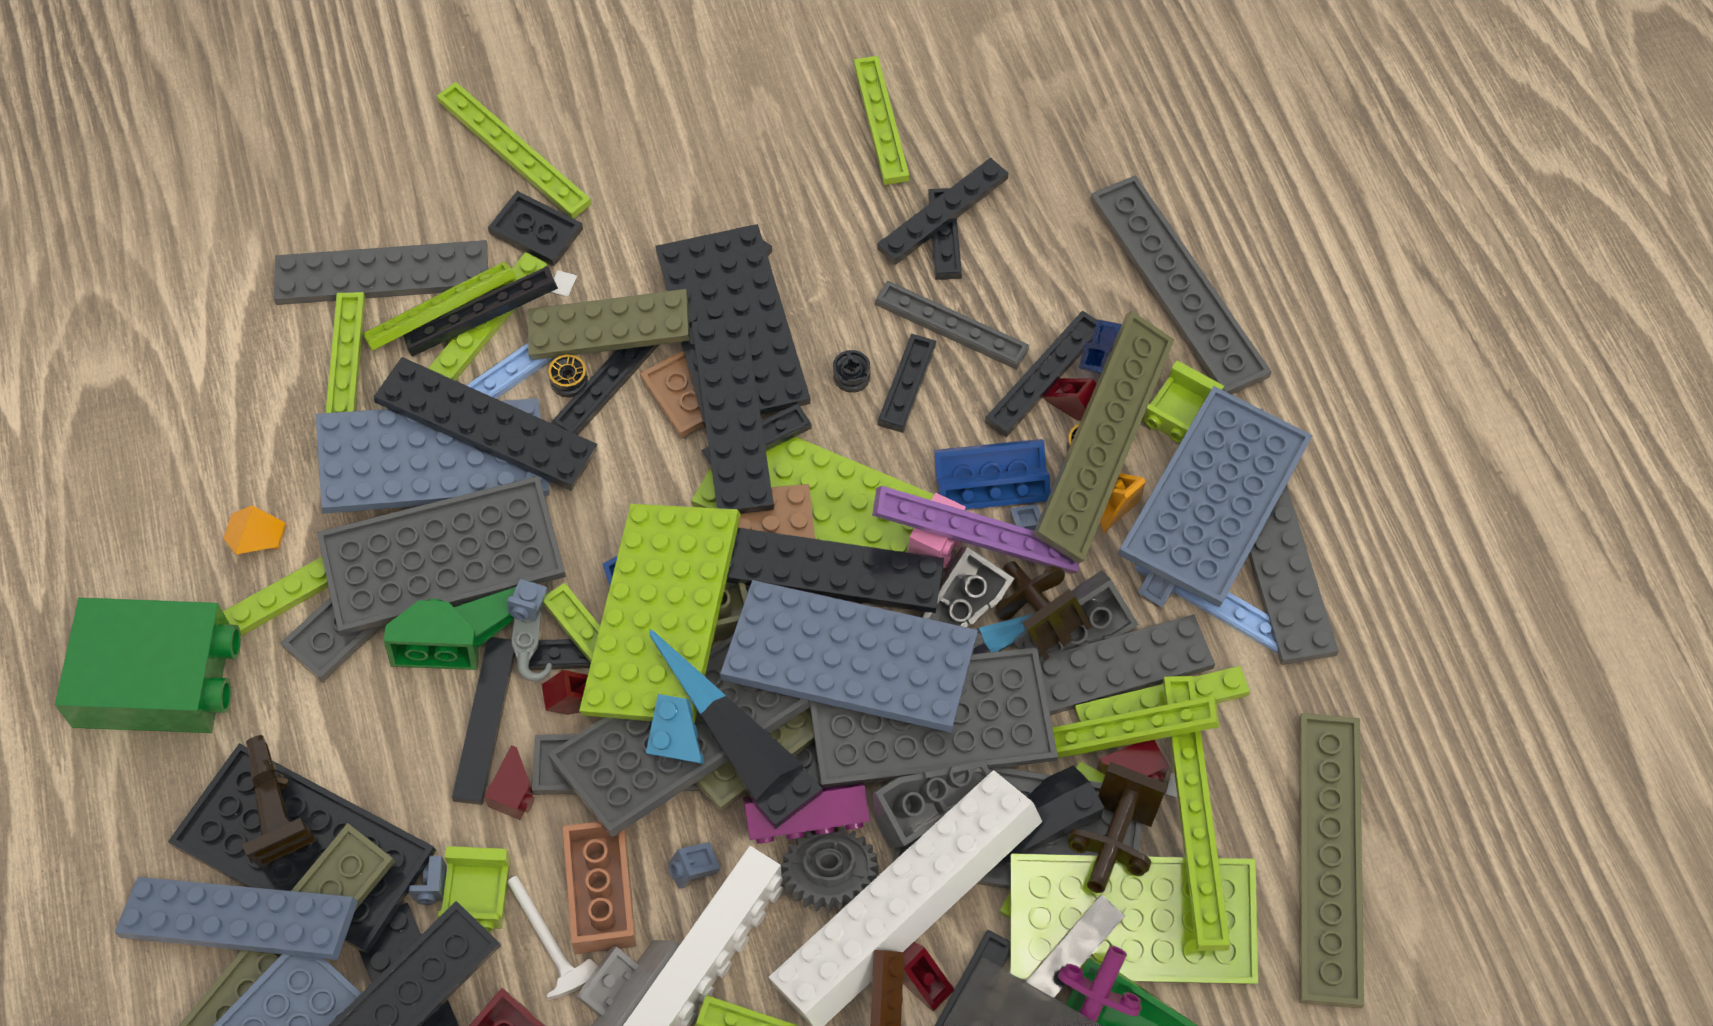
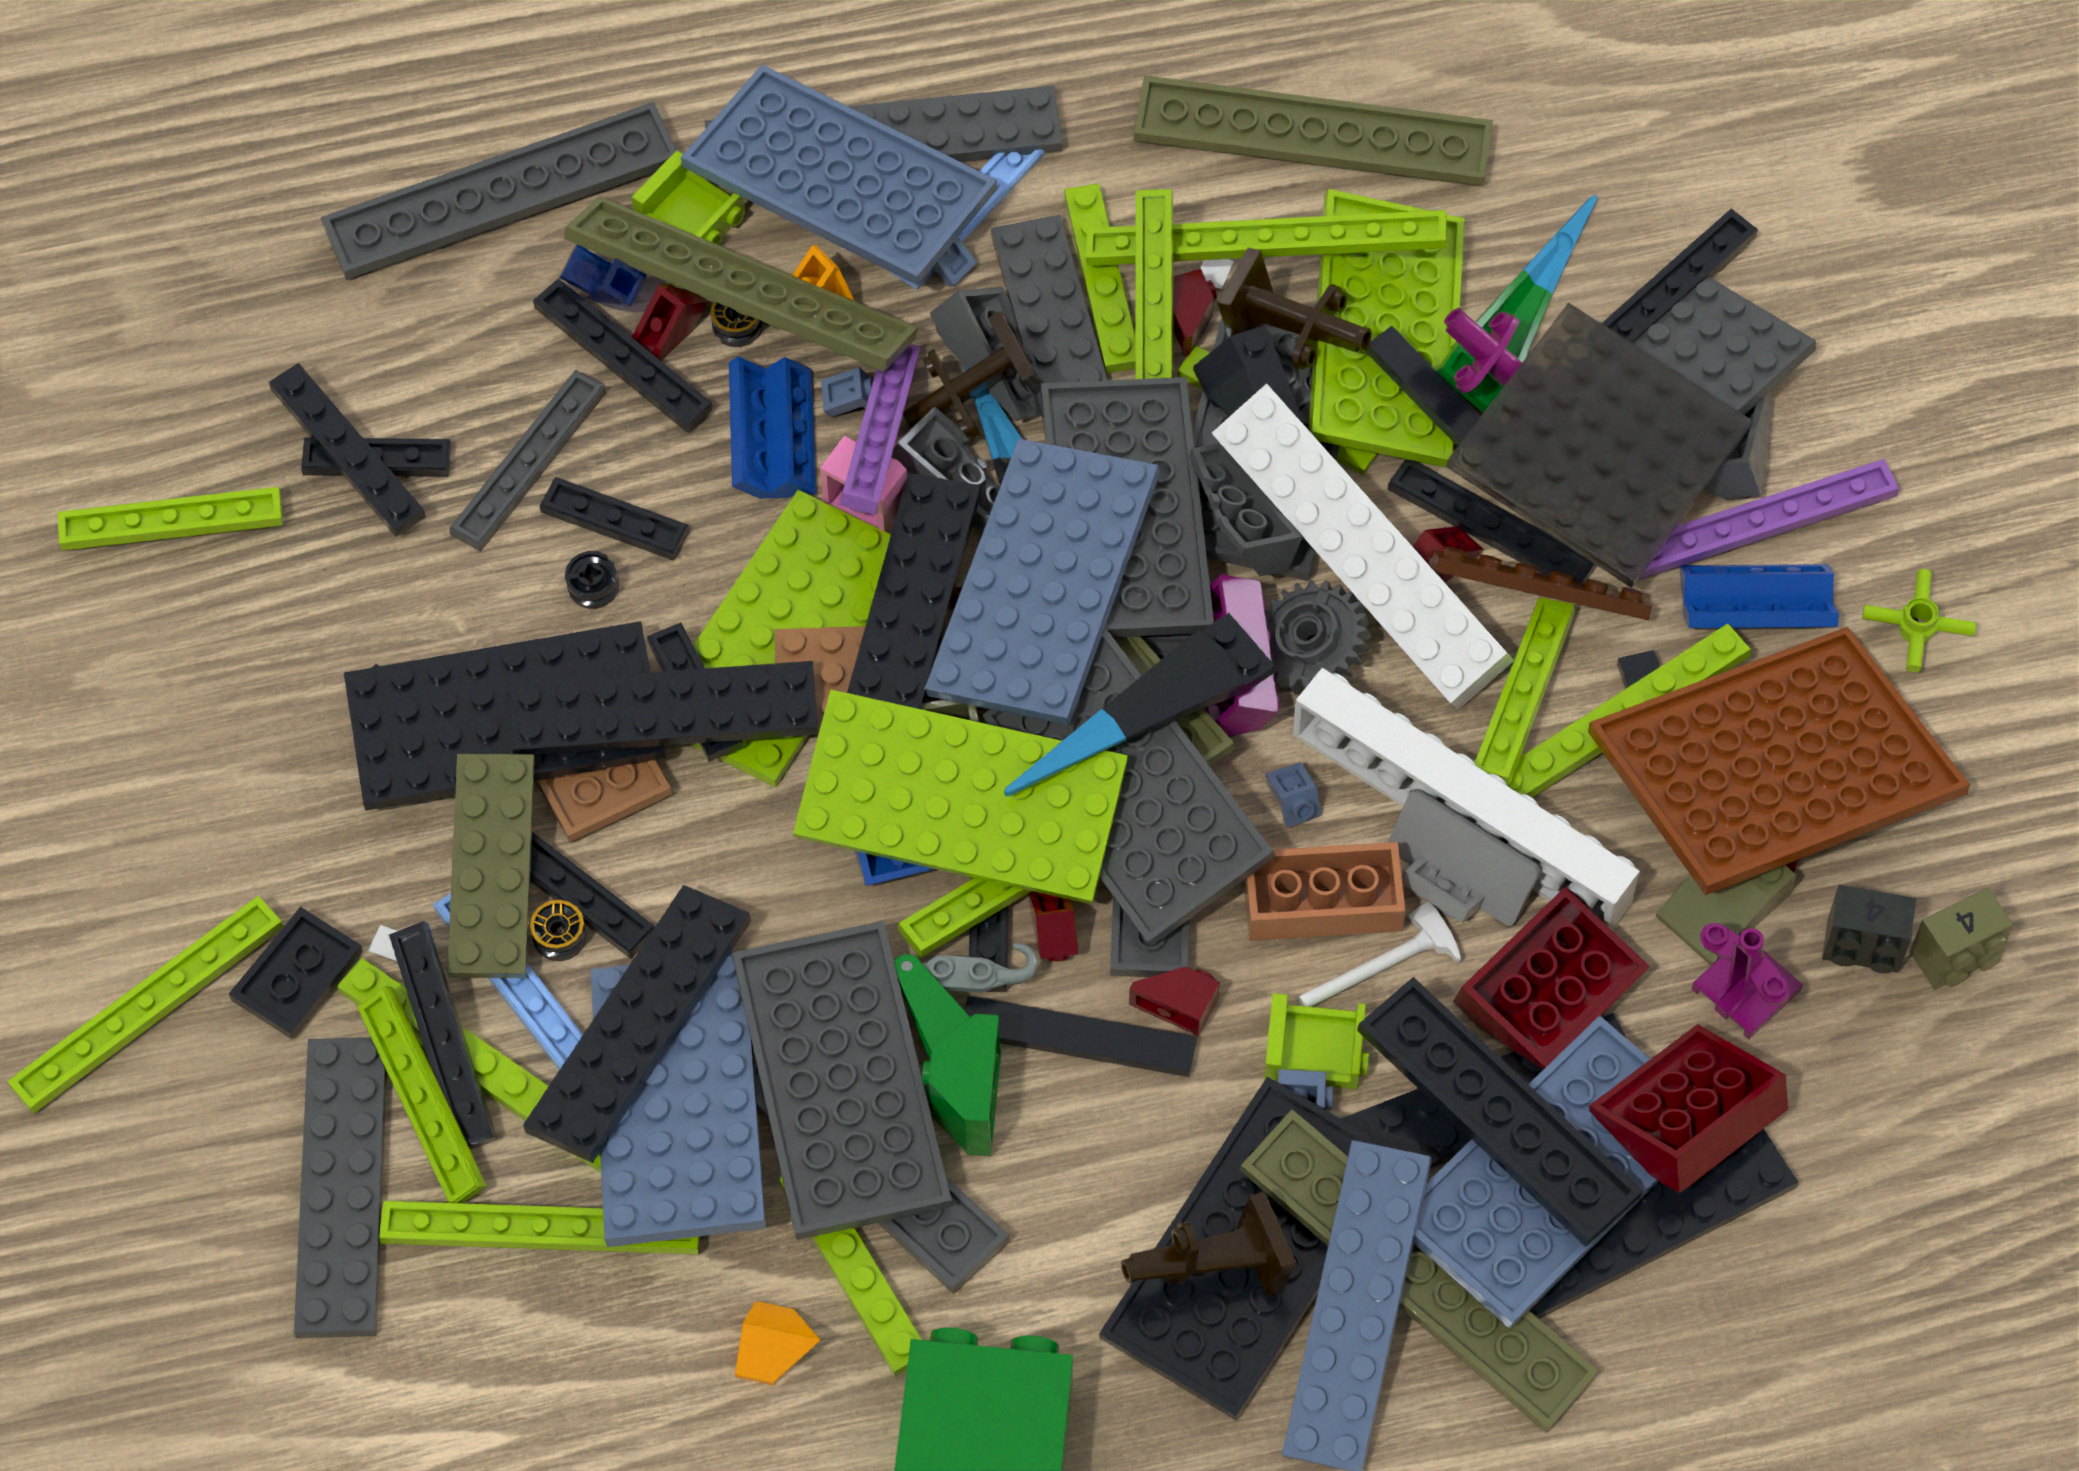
camera: 85 degrees left, 0 degrees up
(526, 600) = (928, 961): sand blue bracket -> none
(673, 731) = (1143, 772): dark azure wing -> none

